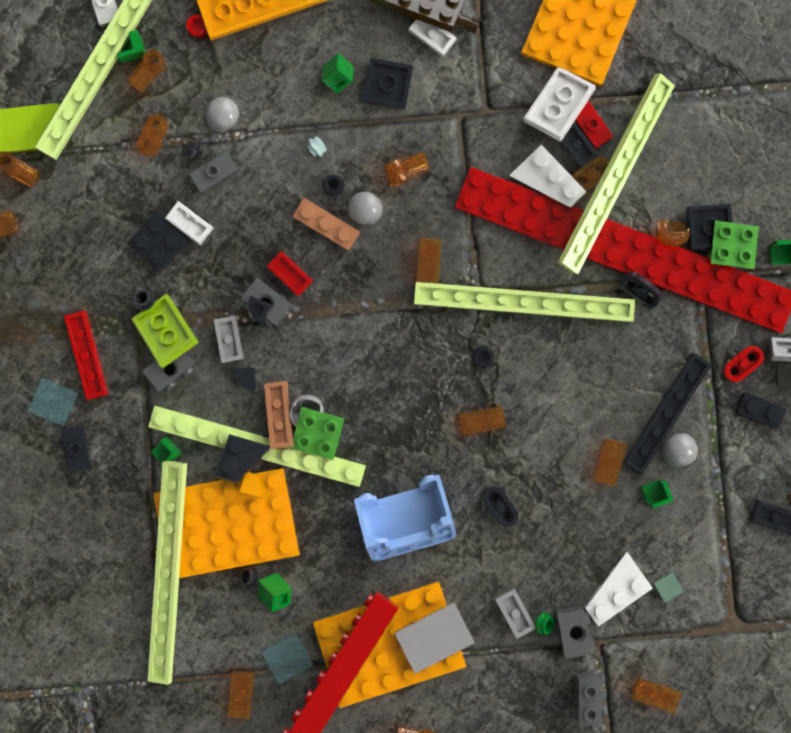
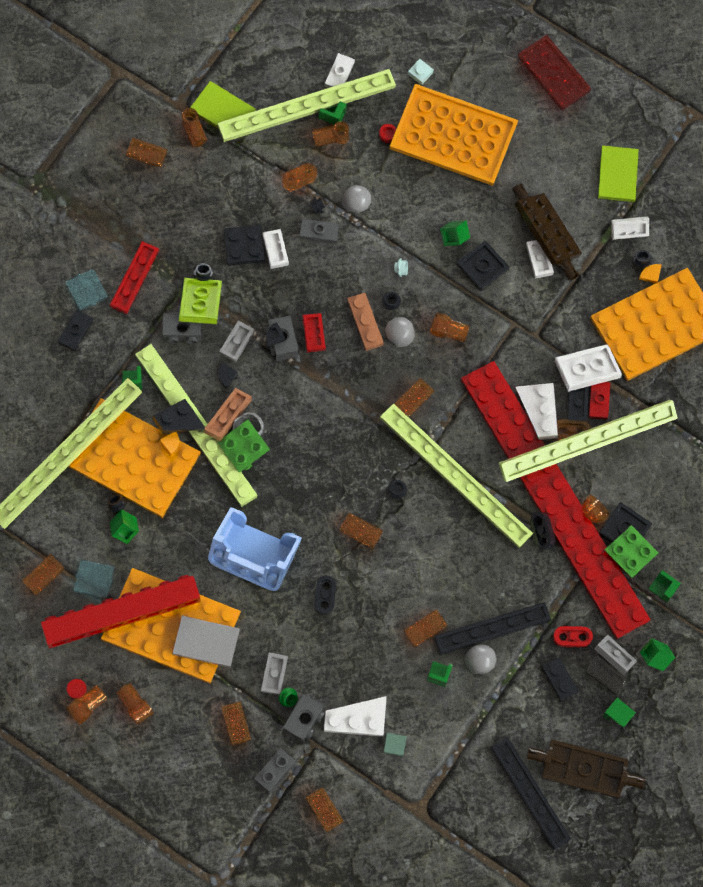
camera: 30 degrees right, 15 degrees down
(519, 684) = (236, 723): none -> clear orange plate

